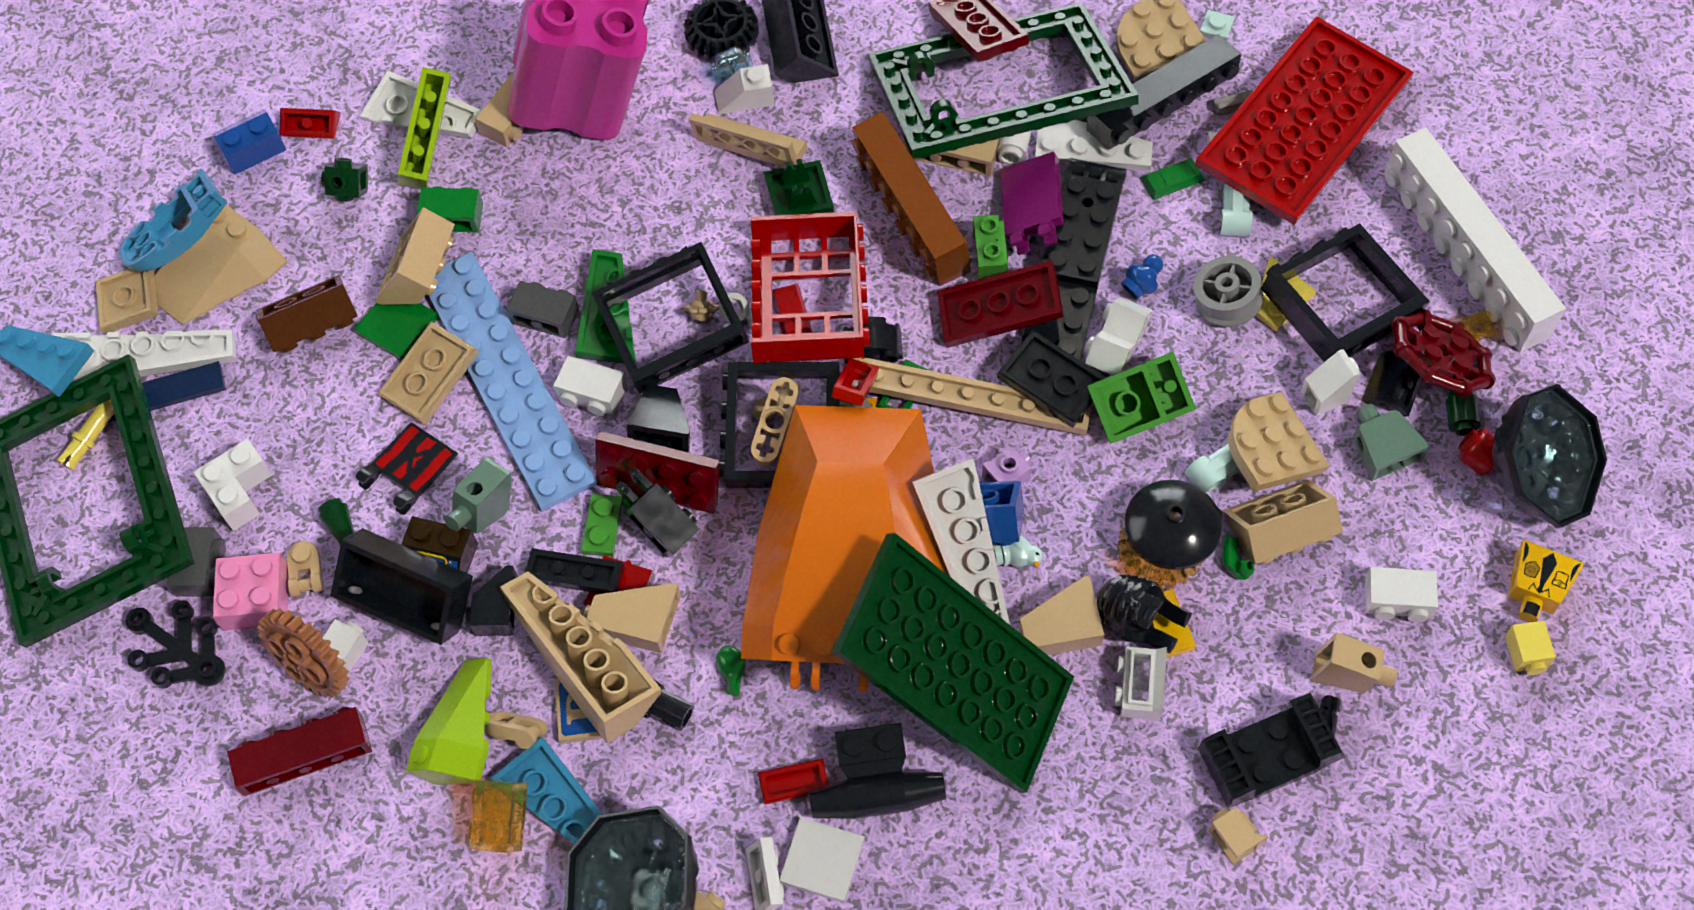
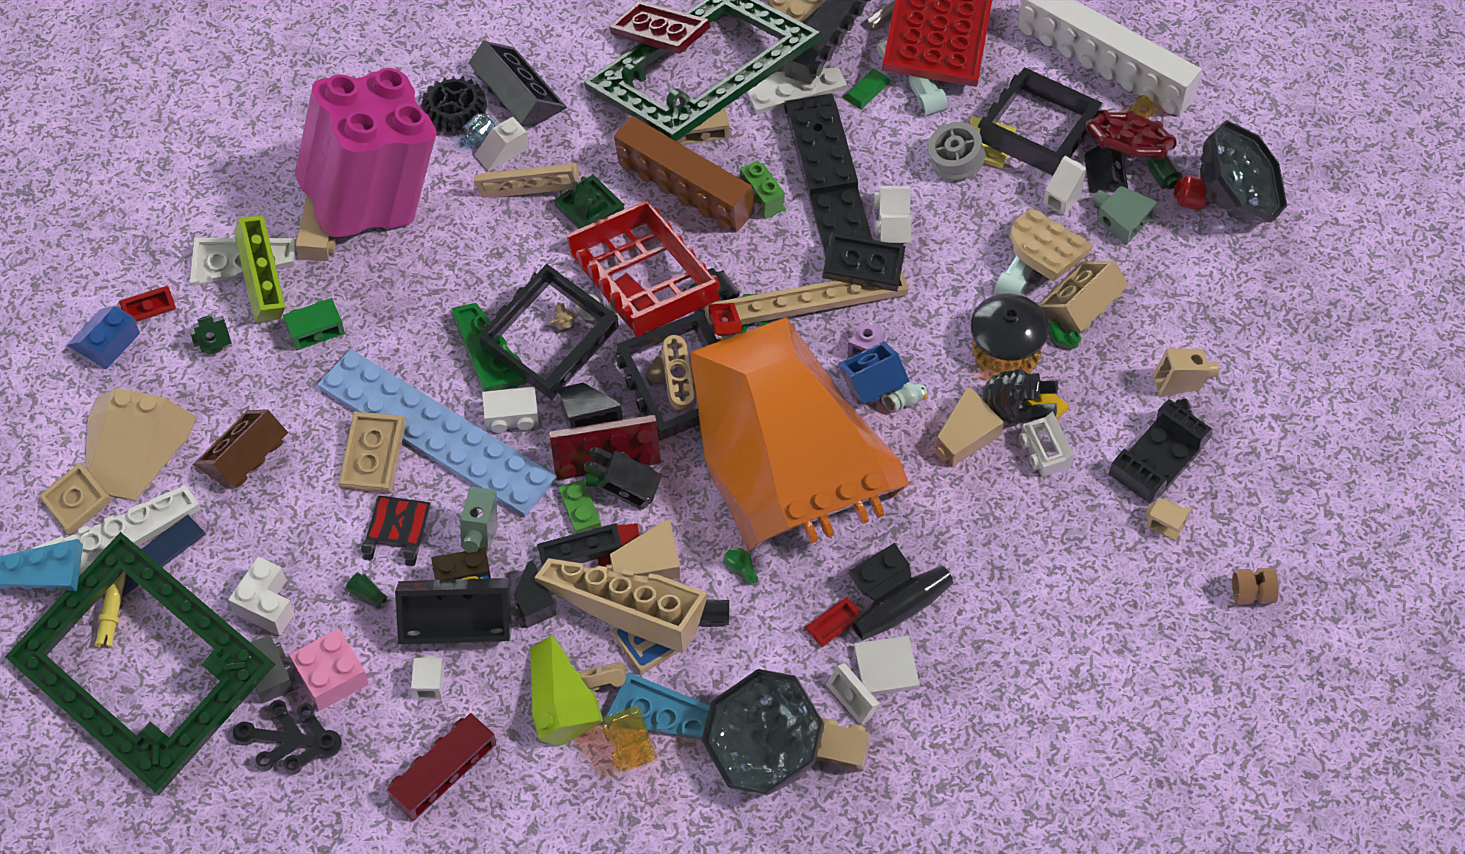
camera: 30 degrees left, 5 degrees down
(158, 241) = (79, 447): dark azure slope -> none
(302, 559) = (356, 630): tan plate -> none
(303, 653) = (409, 688): nougat gear -> none
(395, 326) = (319, 427): green tile -> none
(416, 260) = (312, 371): tan slope -> none
(542, 309) = (437, 368): dark grey brick -> none
(953, 663) = (919, 476): dark green plate -> none
(962, 532) = (866, 388): white wing -> none
(1000, 304) = (794, 224): dark red plate -> none
(1013, 148) = (738, 111): white brick -> none
(1032, 201) = (775, 141): magenta tile -> none
(1141, 397) = (937, 248): bright green slope -> none
(1143, 278) = (887, 166): blue animal -> none
(1401, 593) = (1190, 310): white brick -> none
(1530, 647) = (1295, 310): light yellow brick -> none
(1541, 579) = (1277, 262): yellow torso -> none

